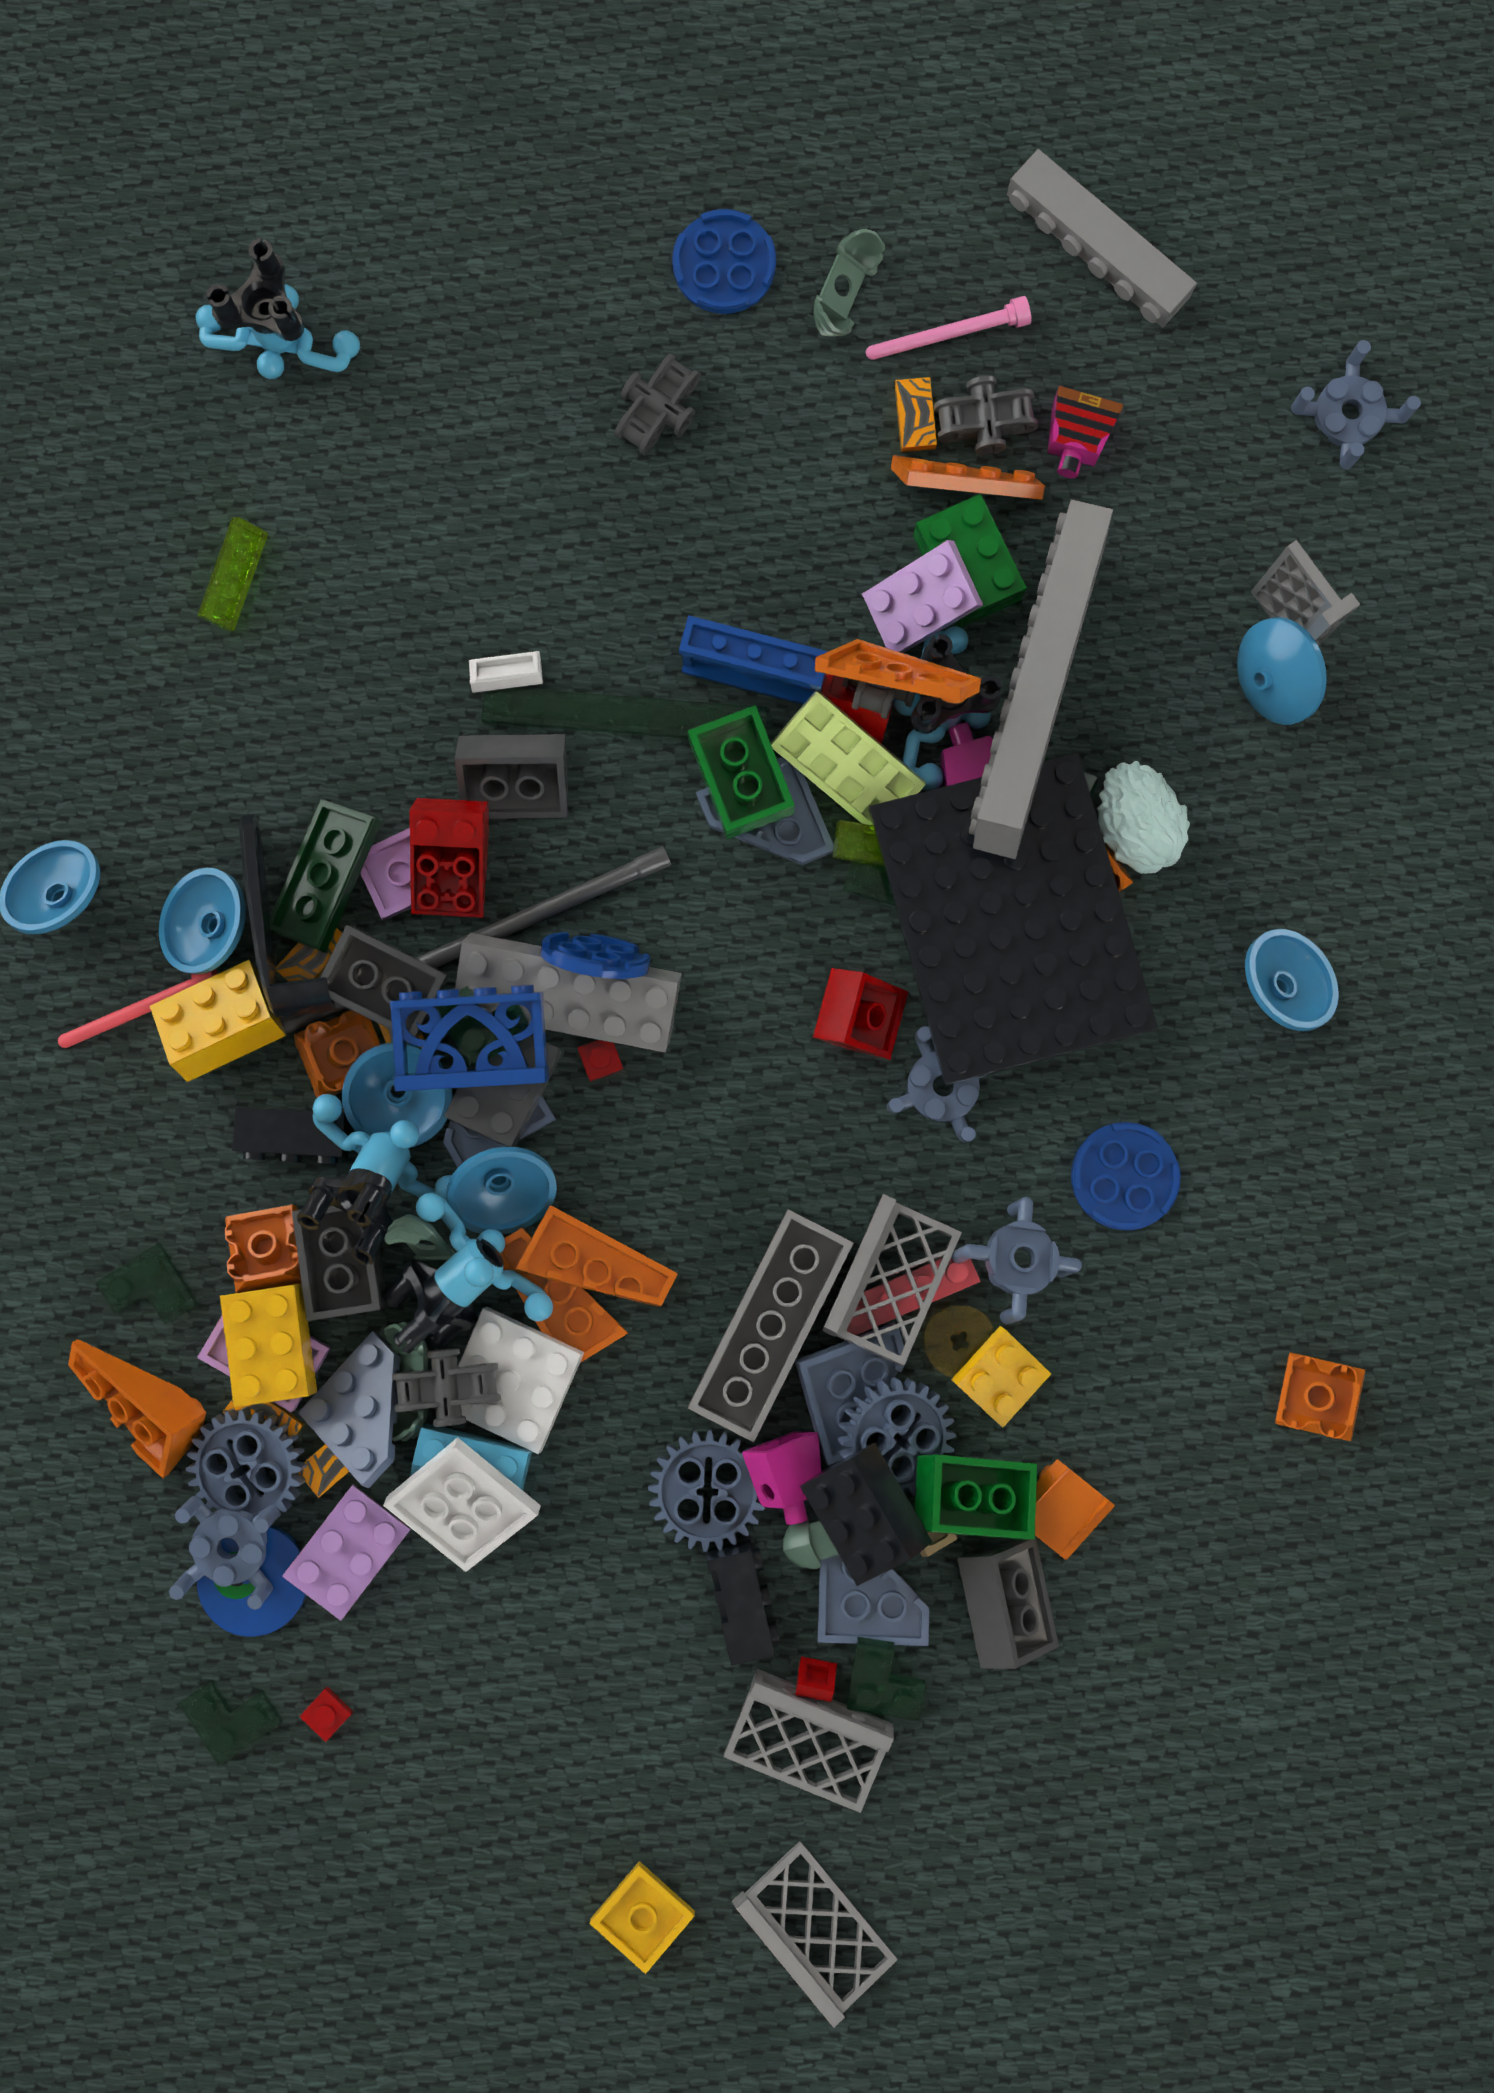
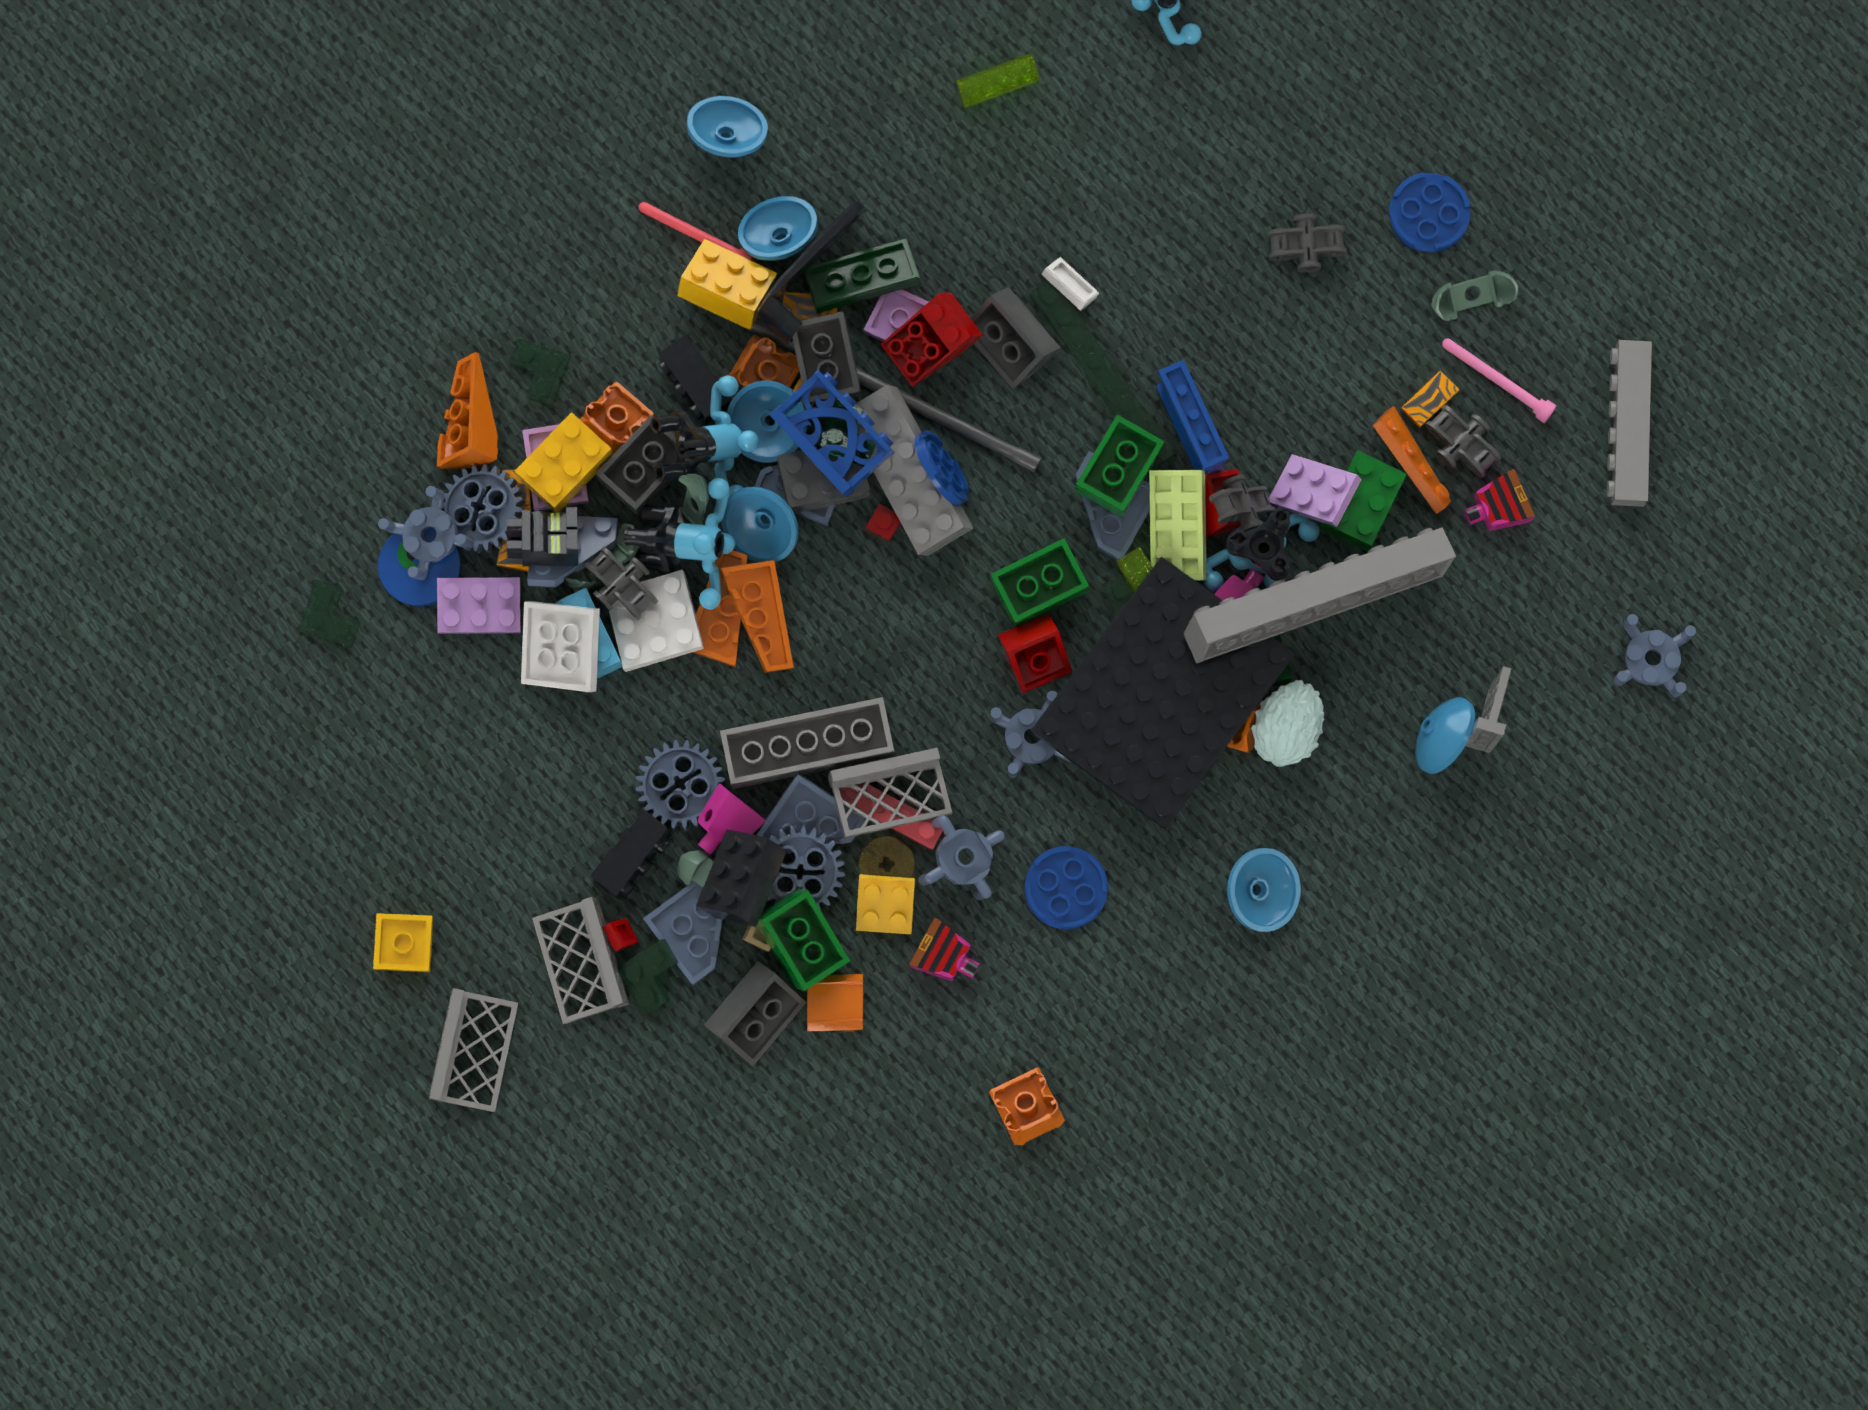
camera: 55 degrees right, 5 degrees down
(326, 1714) = (375, 669): red plate -> none
(332, 1432) = (546, 538): none -> black hips
(794, 951) = (1039, 583): none -> green brick
(897, 670) = (1247, 502): orange wing -> none
(1099, 1357) = (943, 953): none -> torso

